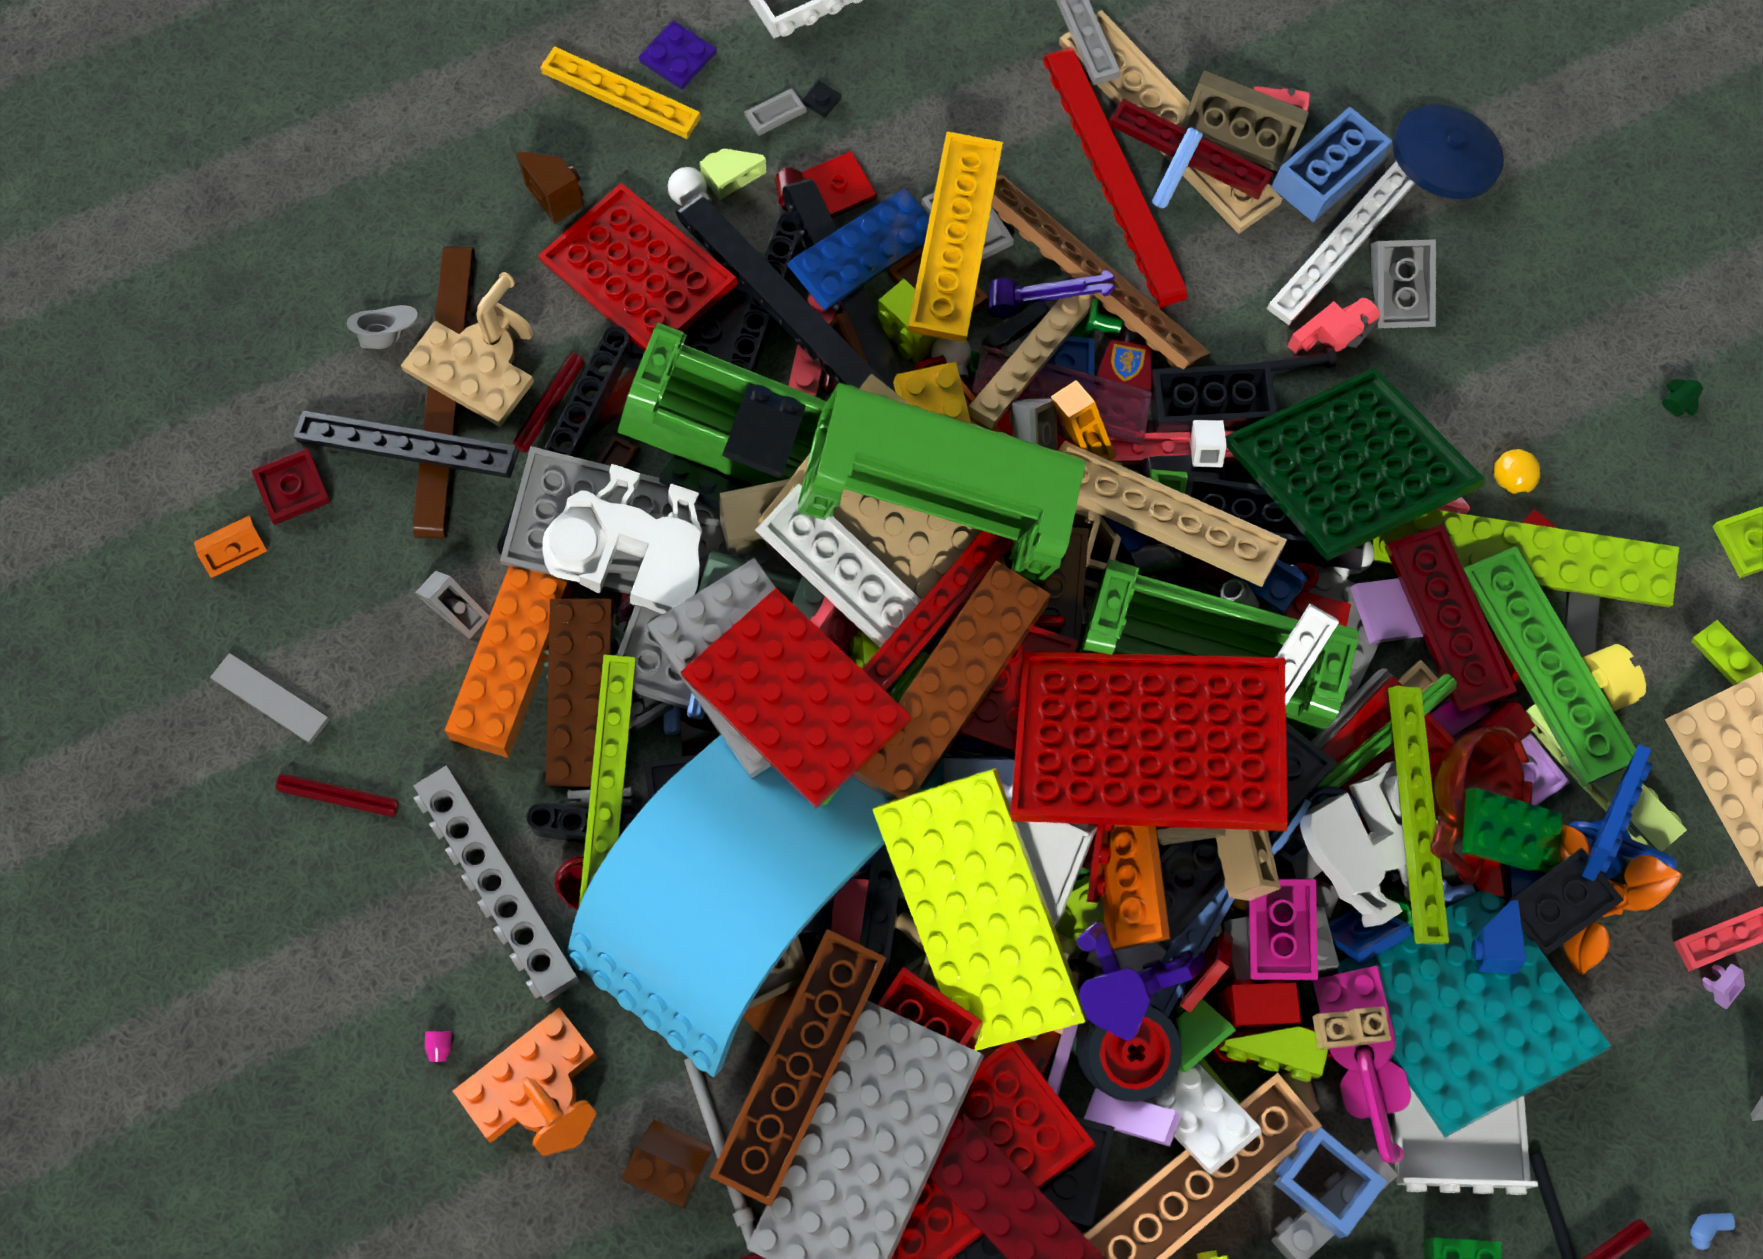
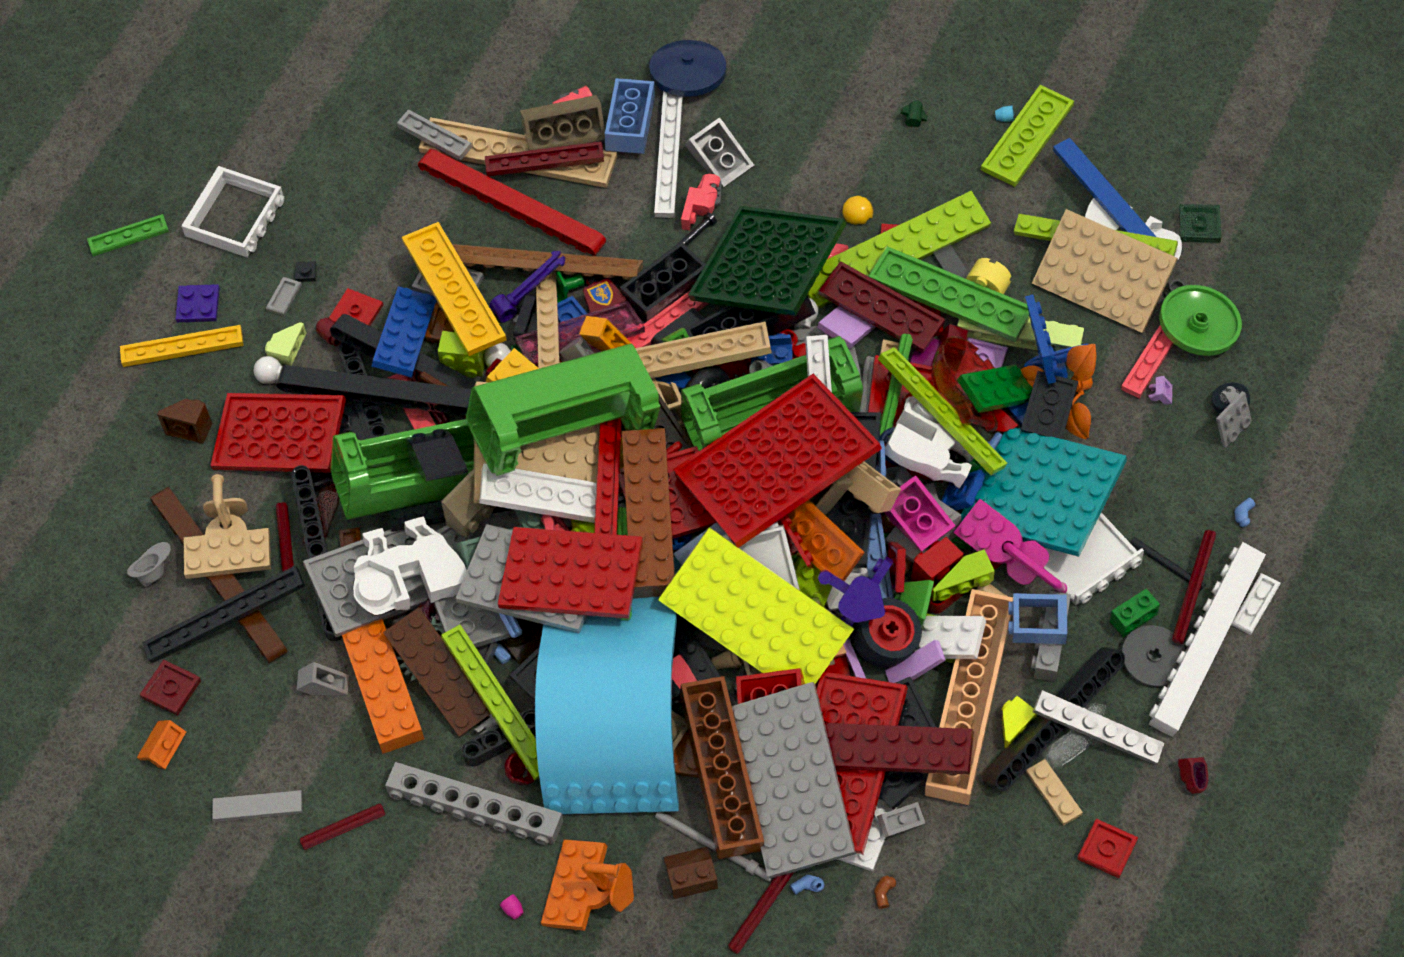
camera: 30 degrees left, 10 degrees down
(1177, 167) = (545, 173): light blue axle -> none
(1208, 443) = (681, 305): white brick -> none
(1351, 1028) = (991, 536): tan slope -> none
(1501, 943) = (1033, 445): blue slope -> none

